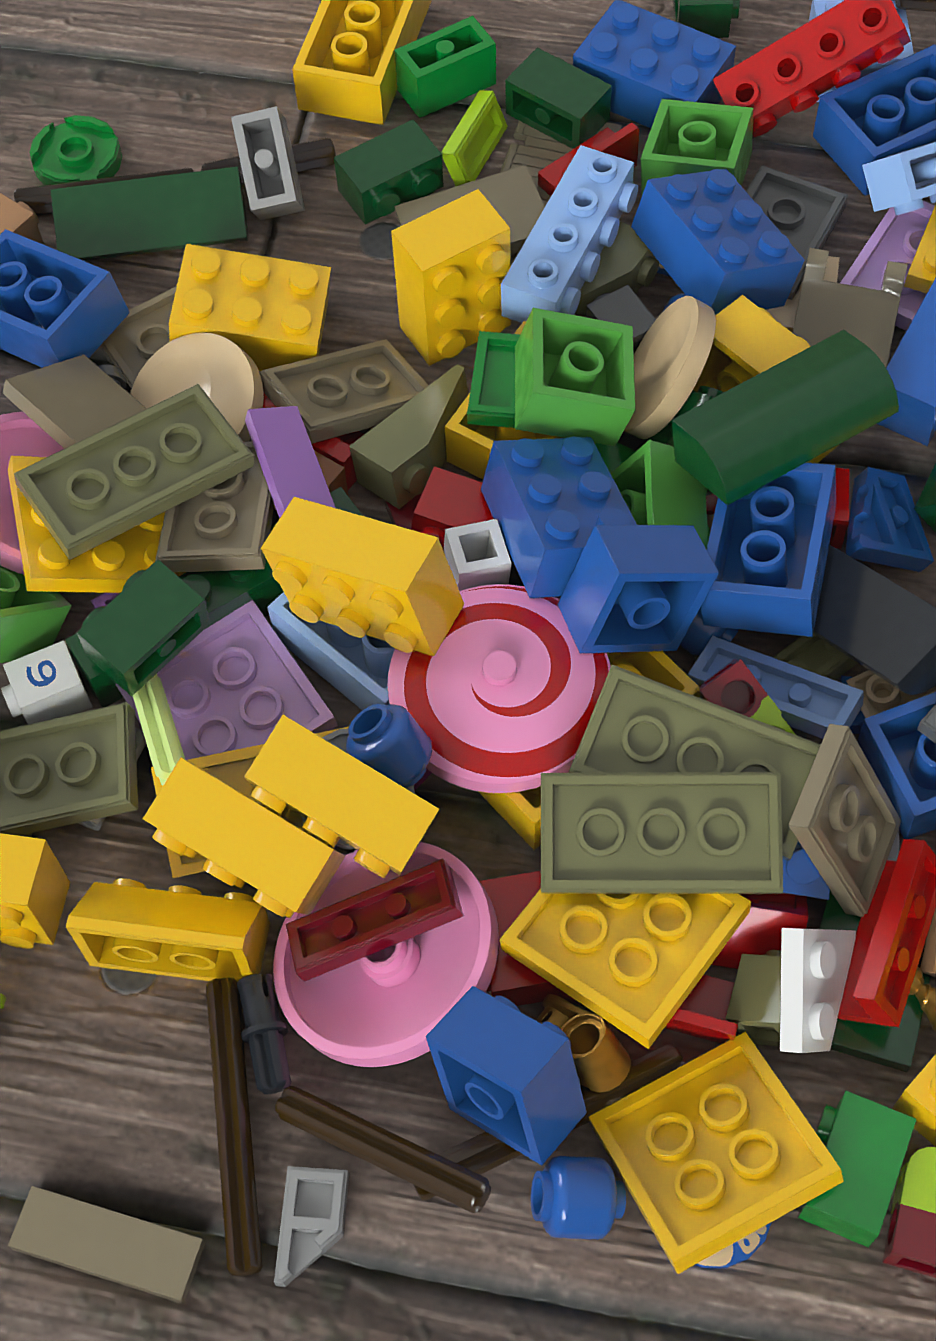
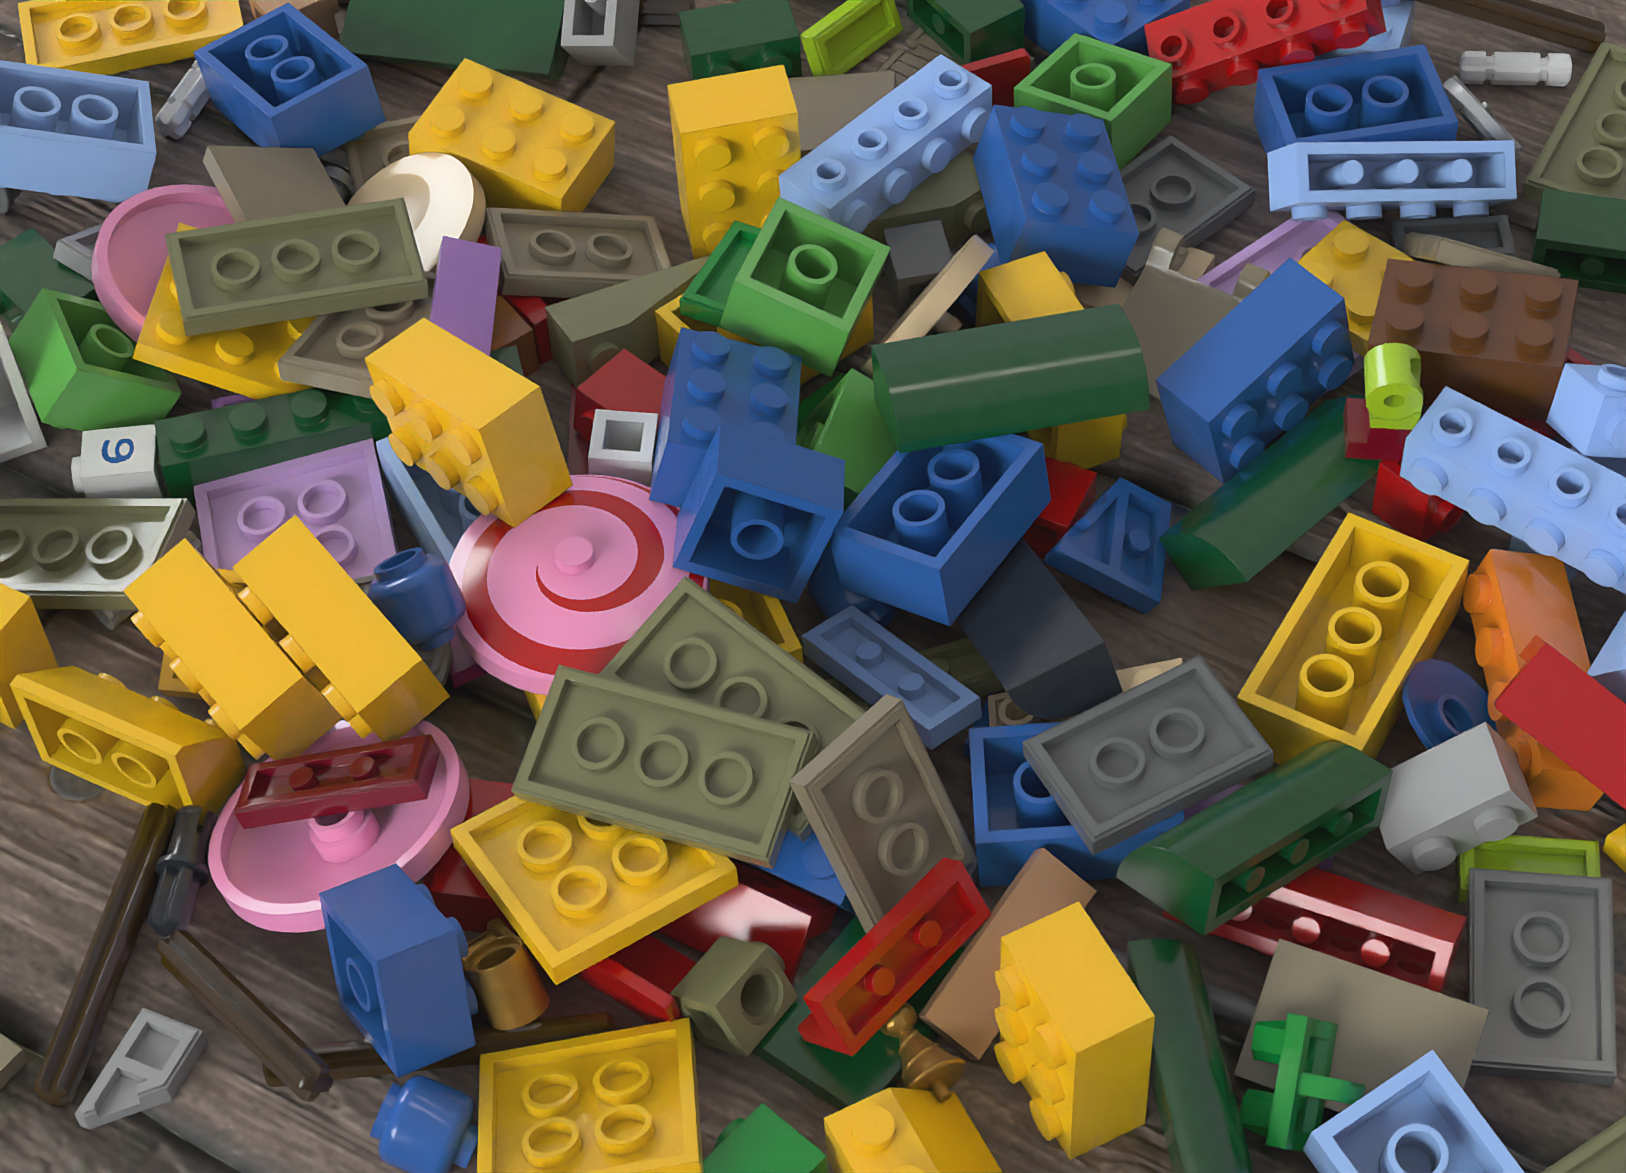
camera: 20 degrees right, 10 degrees down
(143, 626) = (231, 422): dark green brick -> none
(158, 728) = (211, 513): yellowish green axle -> none
(739, 691) = (831, 653): dark red leg -> none
(812, 986) = (765, 985): white wing -> none

